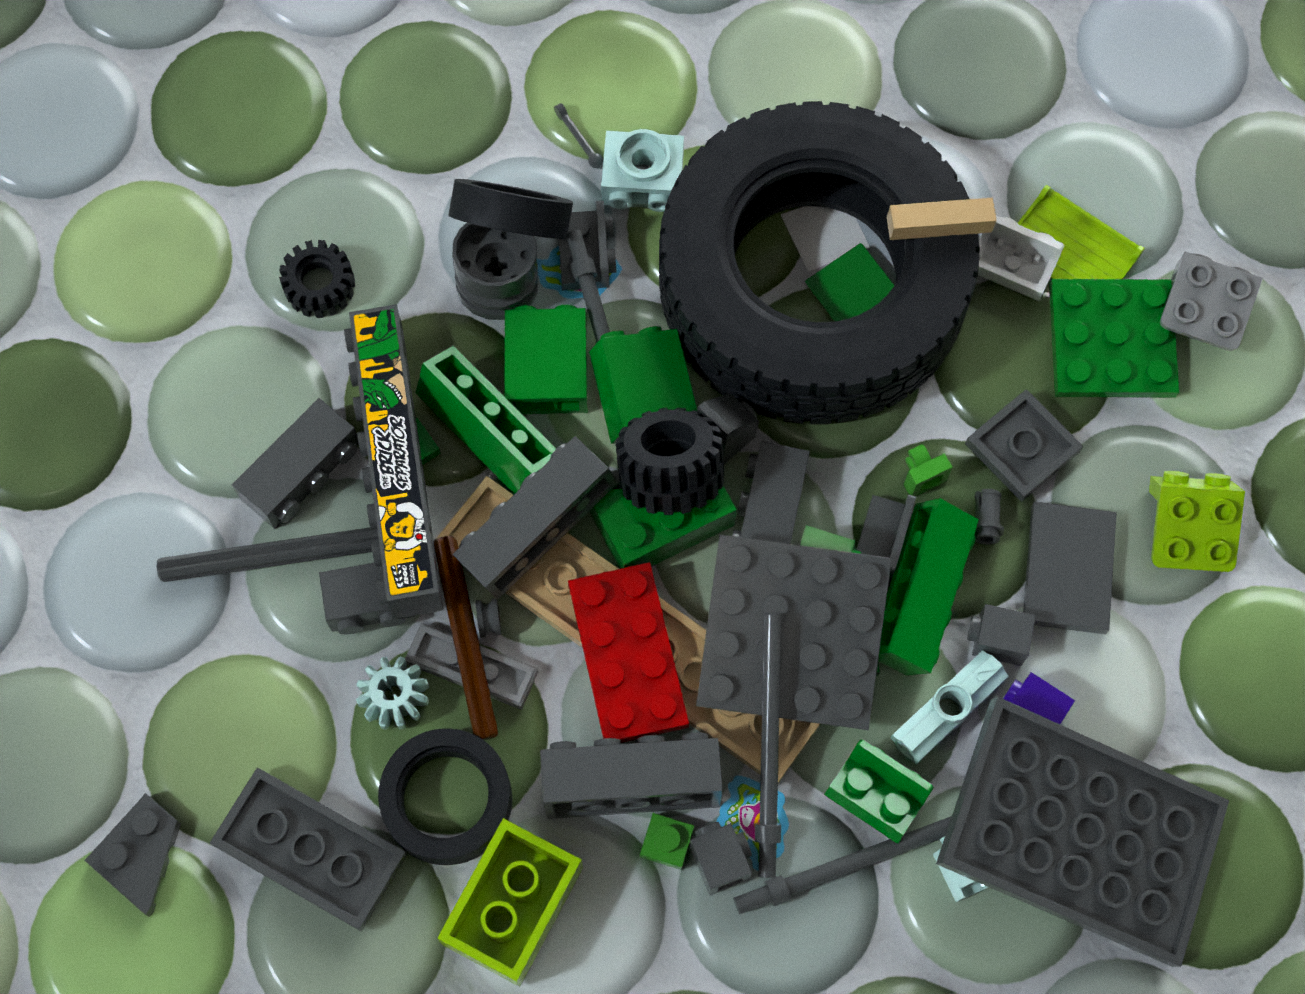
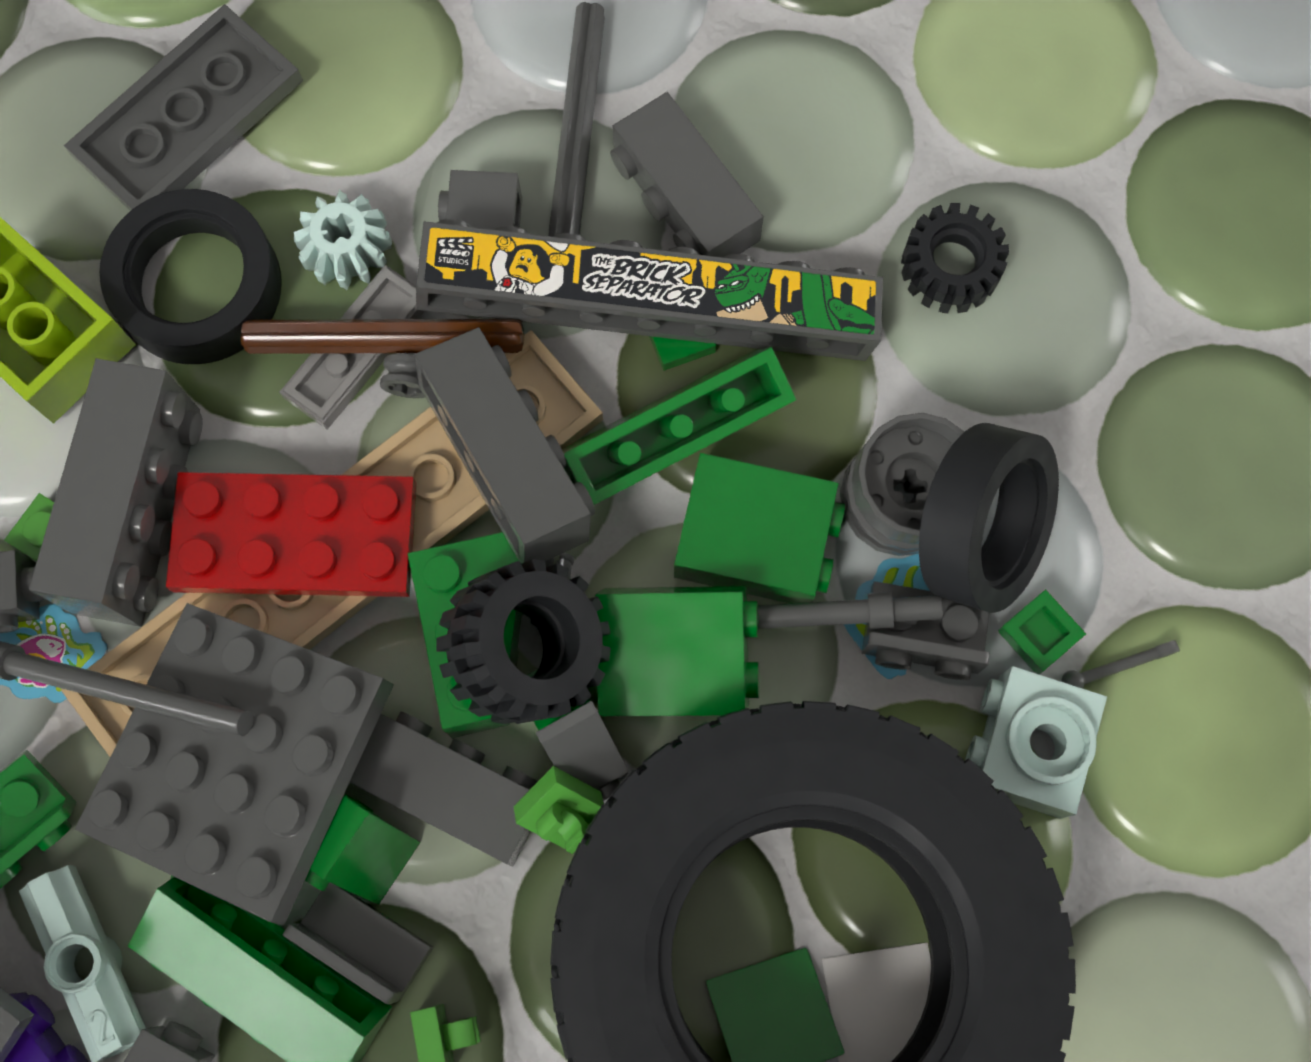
camera: 105 degrees right, 5 degrees up
(570, 179) = (1041, 632): none -> green plate
(769, 421) = (559, 808): none -> bright green tile

